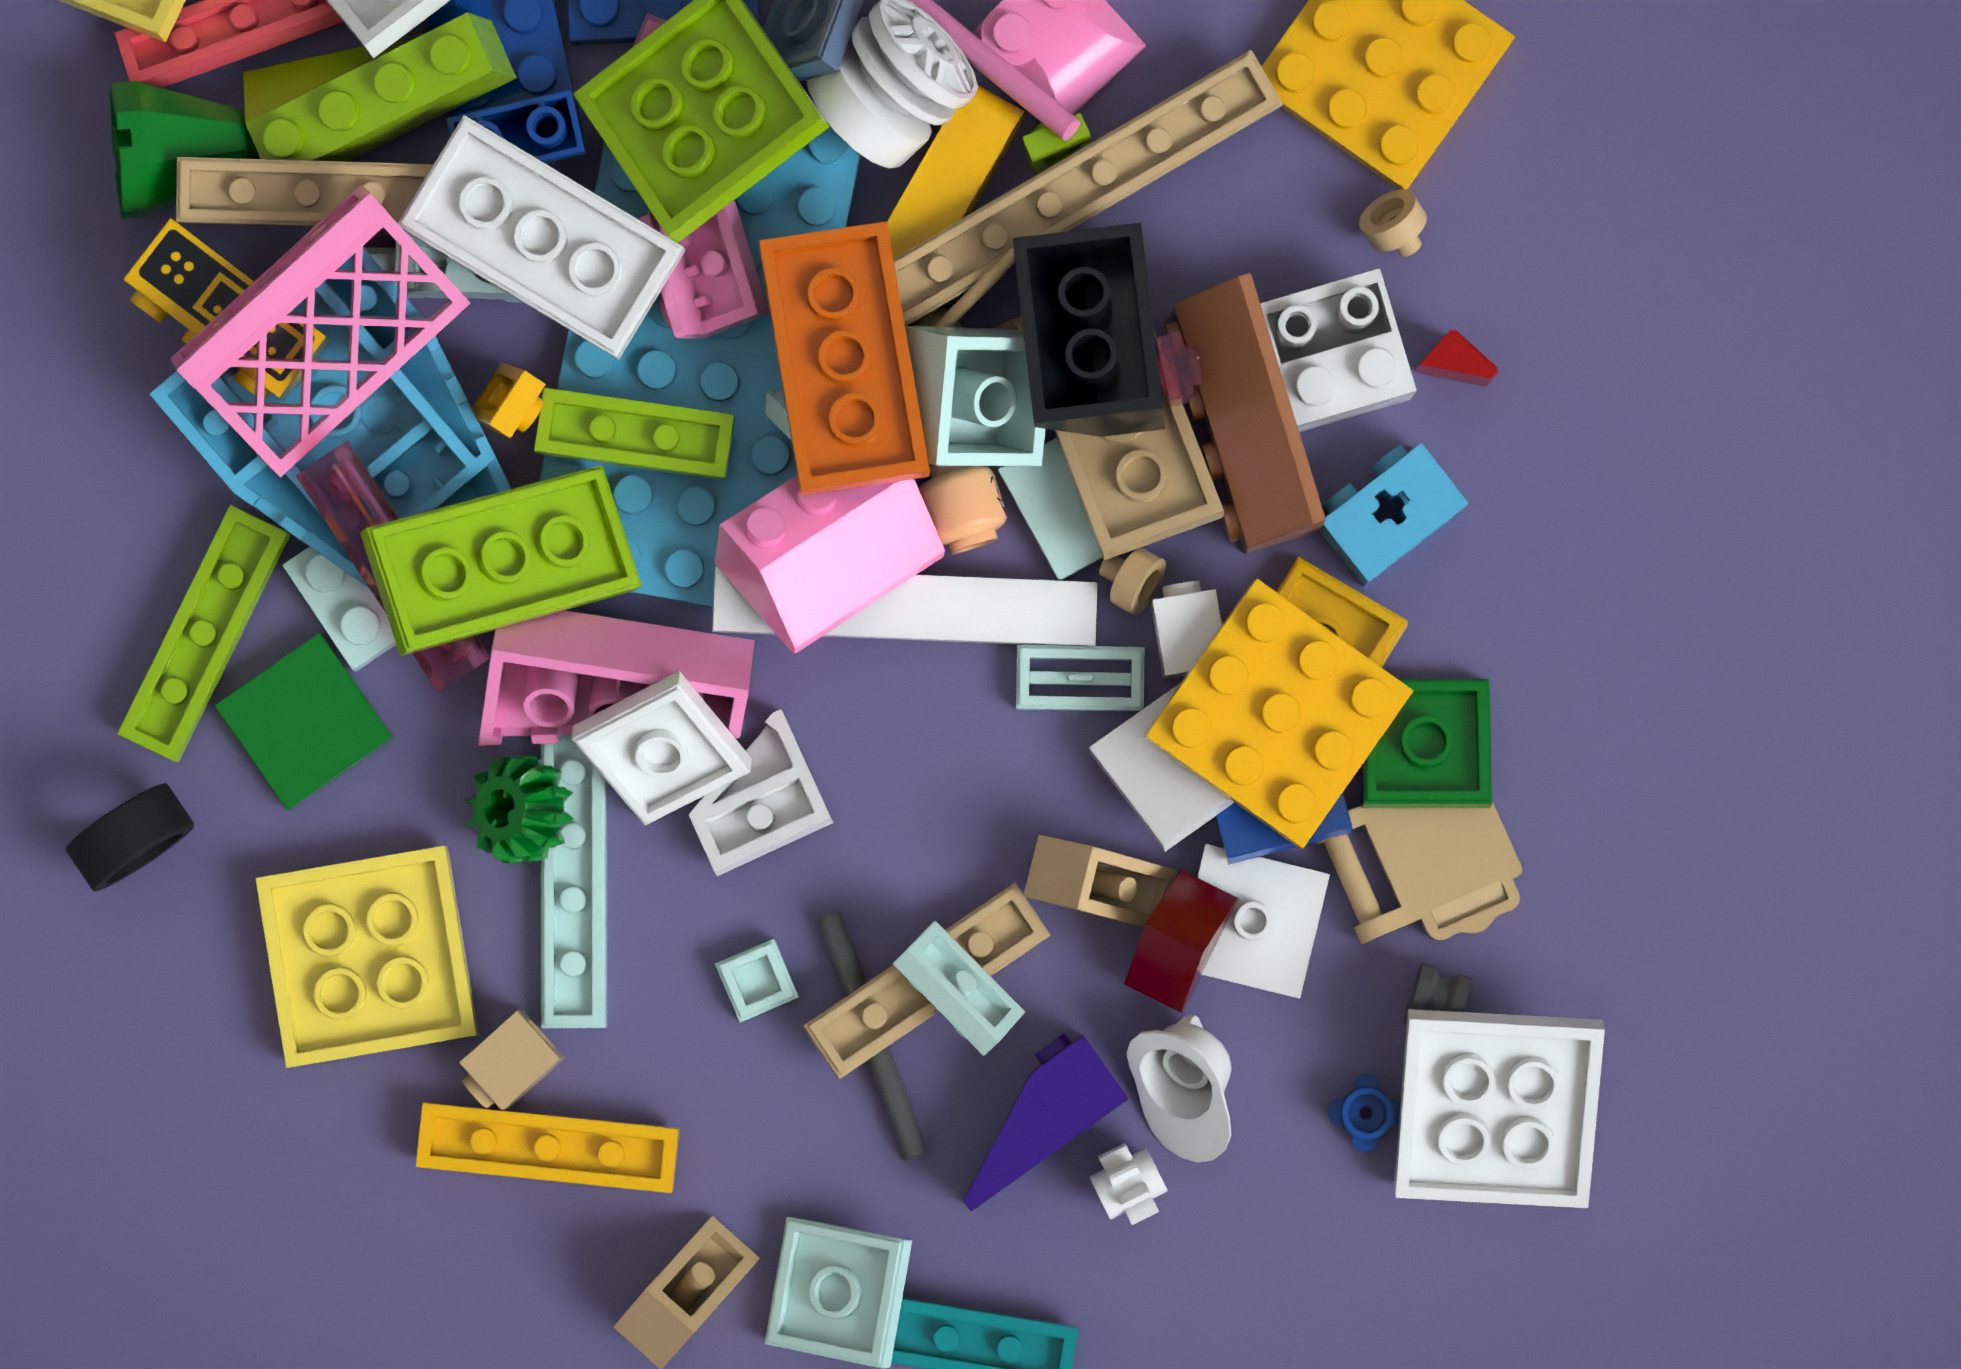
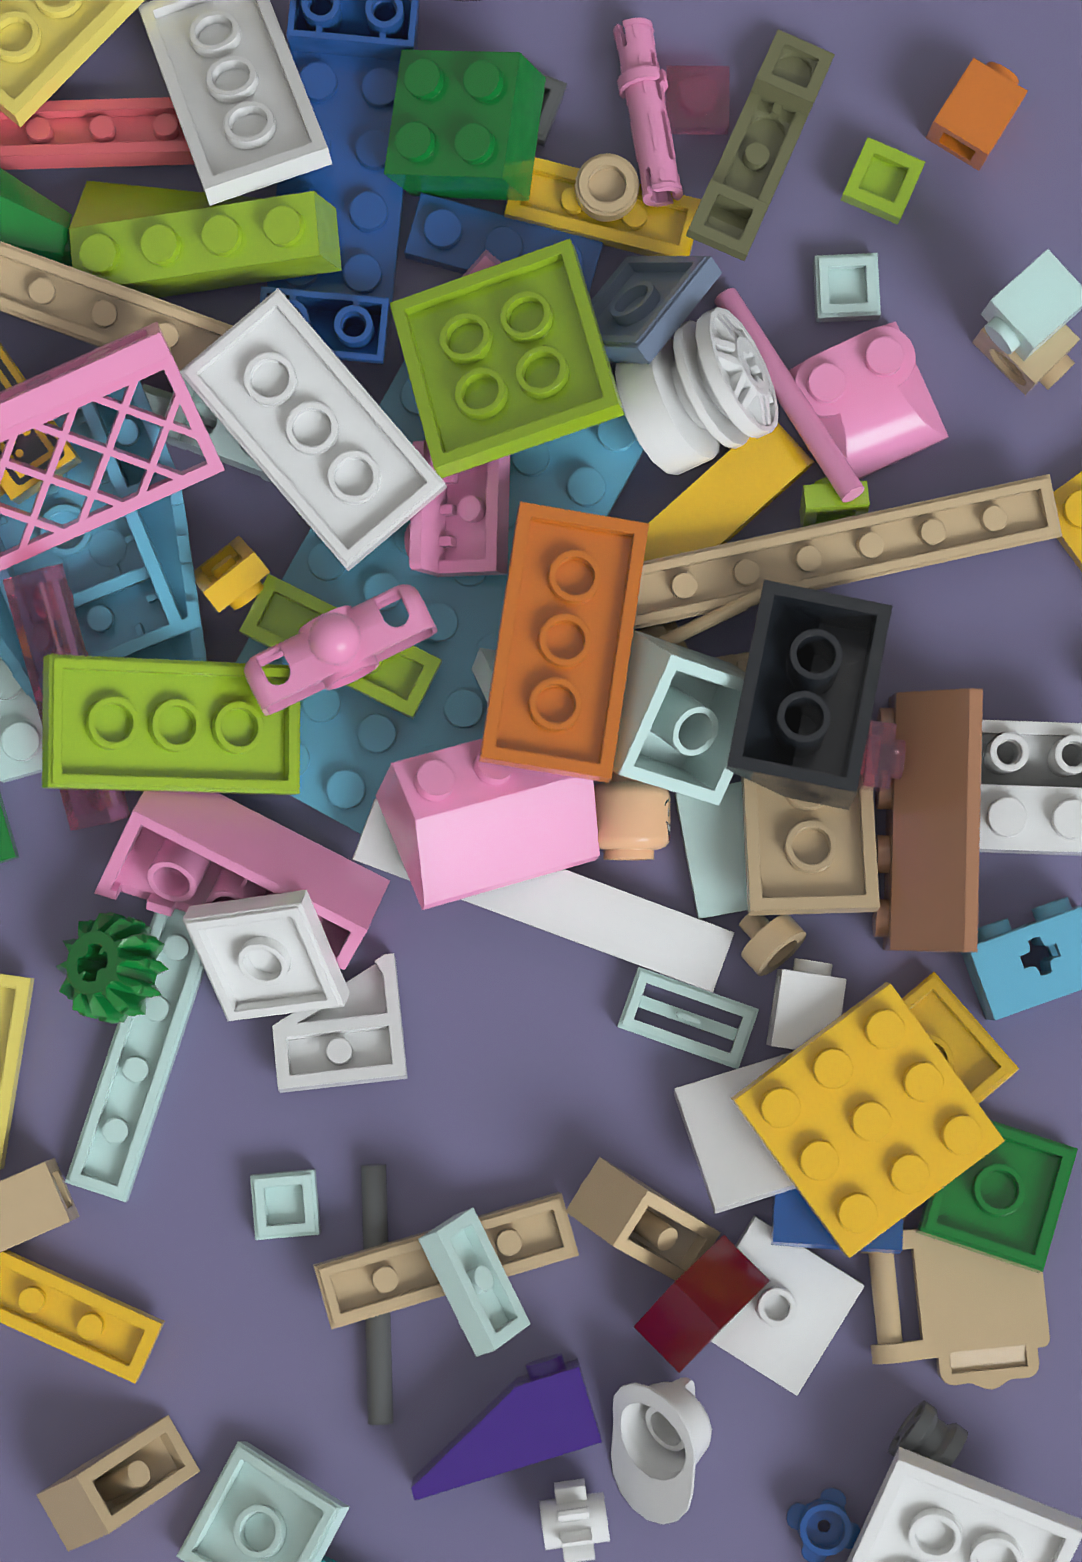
camera: 10 degrees right, 0 degrees up
(634, 434) = (339, 648): none -> bright pink piece

